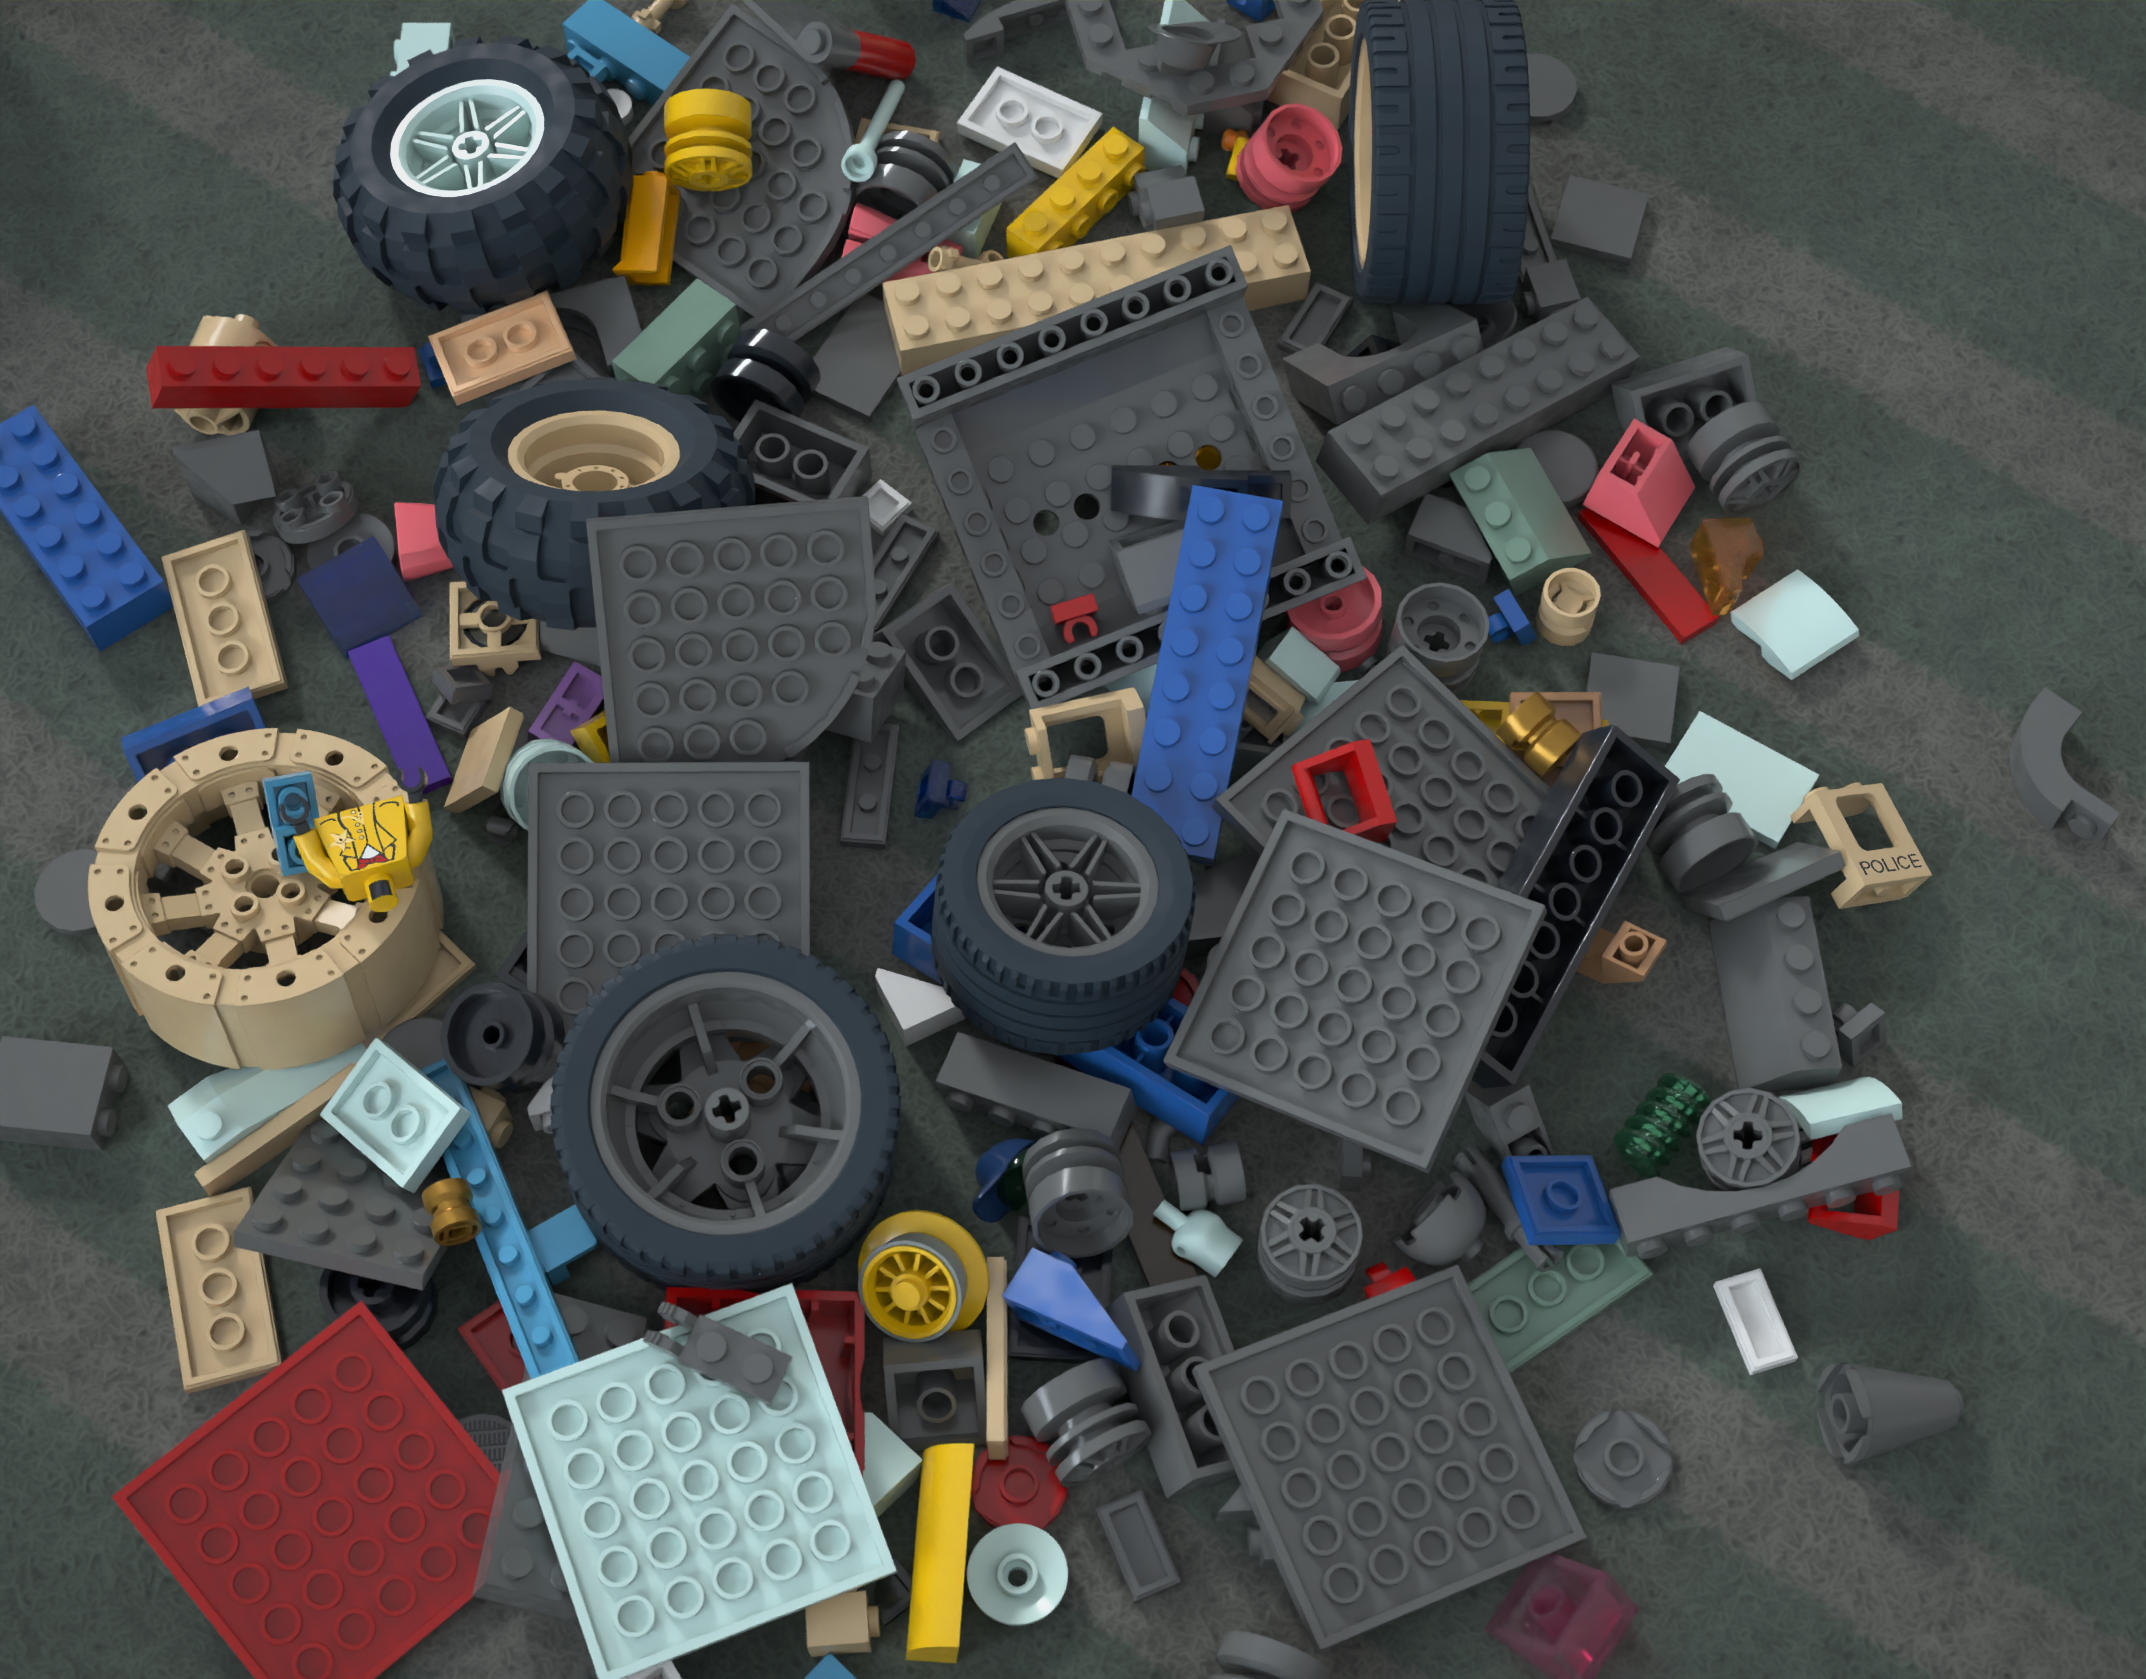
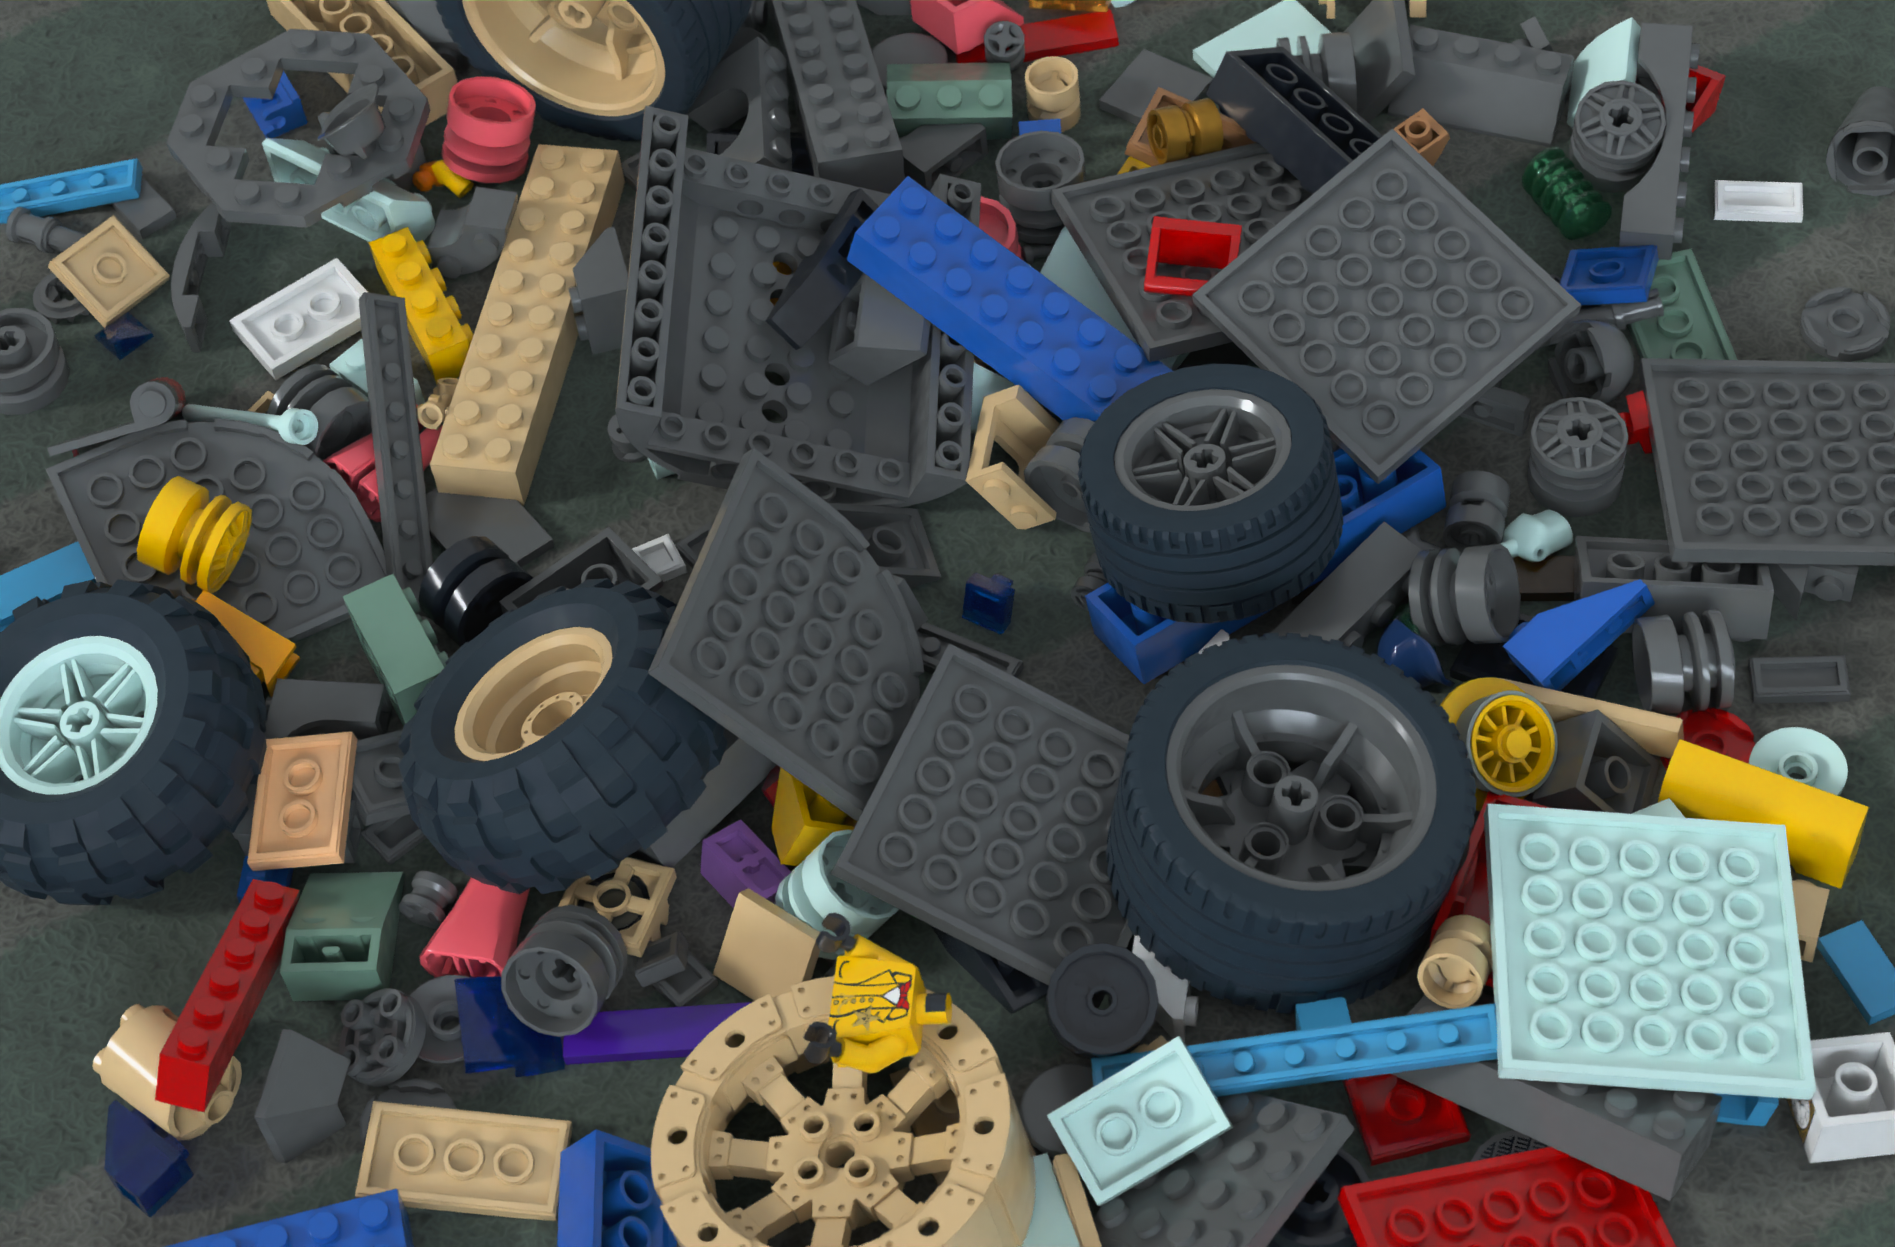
camera: 60 degrees left, 10 degrees down
(132, 408) = (141, 1161): none -> clear blue slope
(286, 790) = (802, 1095): dark azure slope -> none
(396, 437) = (342, 936): none -> sand green slope
(403, 611) = (564, 970): none -> dark grey wheel
(451, 1210) = (1283, 1078): pearl gold wheel -> none
(622, 1318) = (1457, 962): none -> tan wheel
(723, 1354) = (1539, 874): dark grey hinge -> none
(1075, 612) = (876, 424): red tile -> none
(1606, 530) = (1001, 36): none -> dark grey wheel

